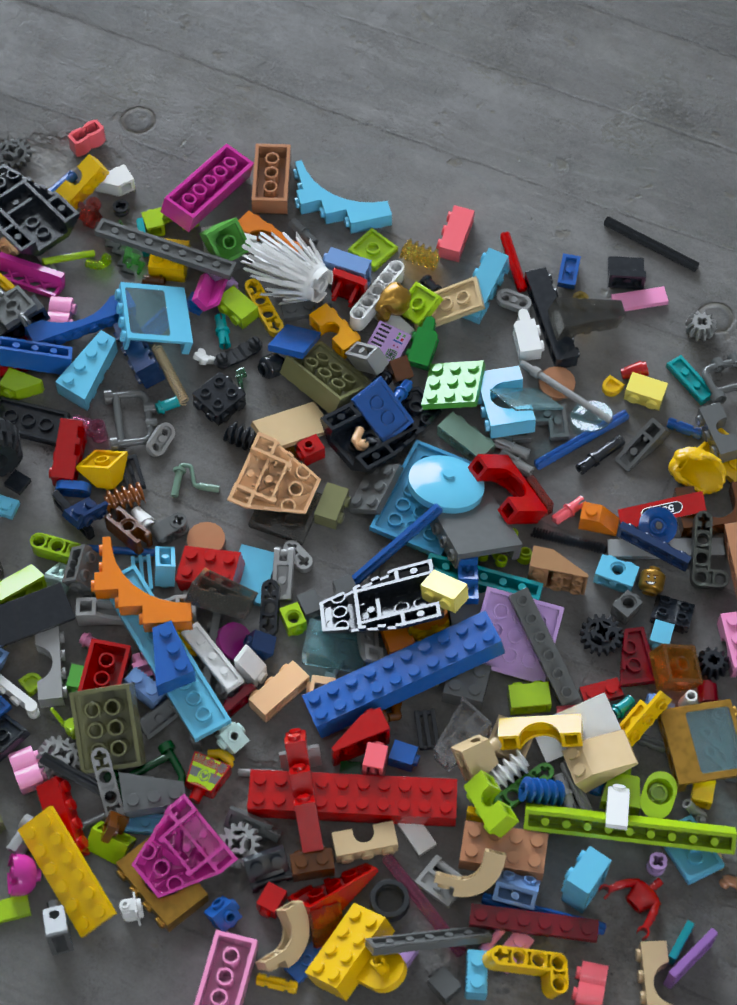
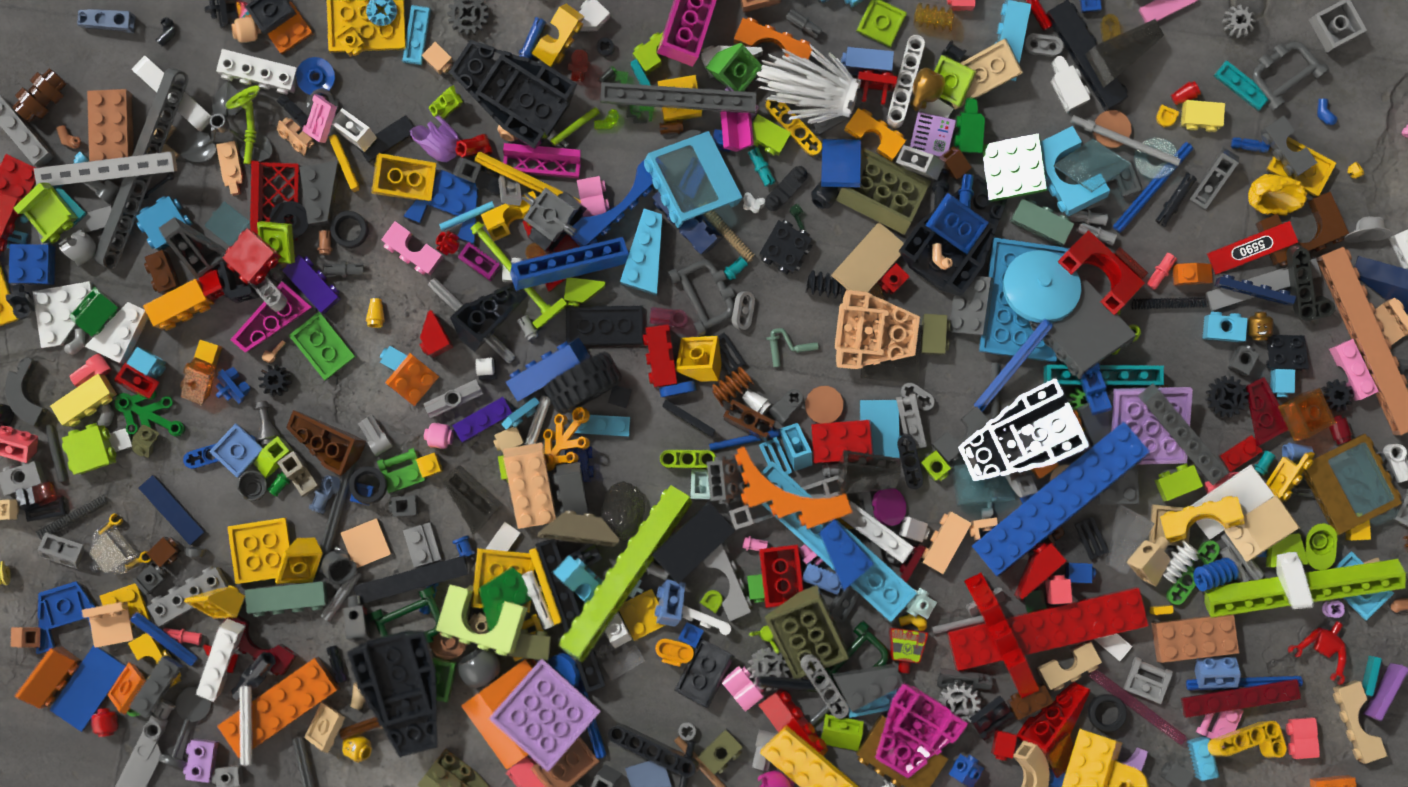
camera: 20 degrees left, 25 degrees up
(85, 513) = (703, 417): dark blue bracket -> none
(113, 825) = (842, 724): reddish brown bracket -> none
(261, 643) = (914, 503): dark blue brick -> none
(427, 940) = (1156, 747): dark grey tile -> none
(445, 589) = (1080, 412): light yellow brick -> none
(479, 881) = (1184, 679): tan arch -> none
(481, 792) = (1165, 595): lime arch -> none
(556, 571) = (1164, 344): medium nougat slope -> none
(585, 879) = (1279, 650): medium azure brick -> none
(659, 514) = (1258, 274): blue dish -> none
(688, 698) = (1320, 442): white cone -> none
(695, 811) = (1353, 546): light grey arm -> none

